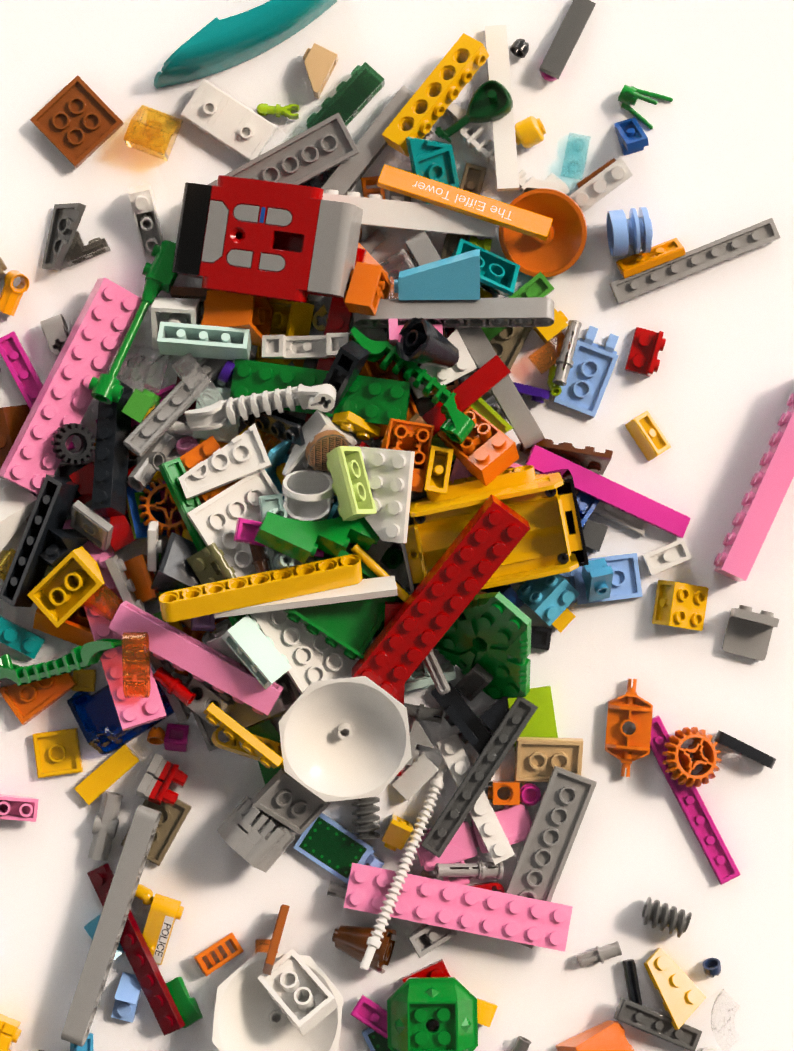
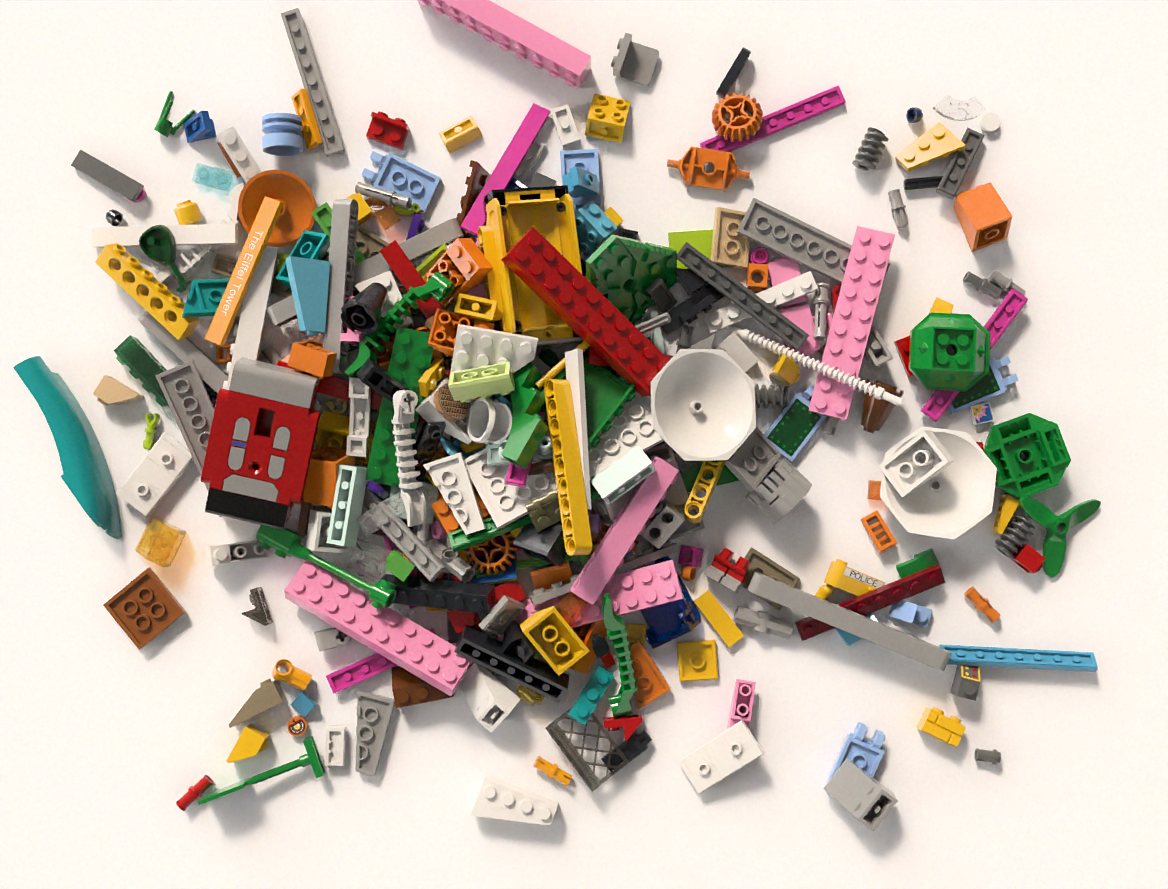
camera: 85 degrees left, 0 degrees up
(60, 643) = (601, 650): none -> black piece
(61, 233) = (242, 627): dark grey wing -> none
(86, 443) = (428, 638): black tyre -> none
(136, 665) = (626, 582): clear orange beam -> none
(154, 546) = (524, 561): white plate -> none
(174, 686) = (647, 551): red pin -> none
(249, 742) = (690, 499): yellow plate -> none
(275, 940) = (870, 479): dark orange tile -> none

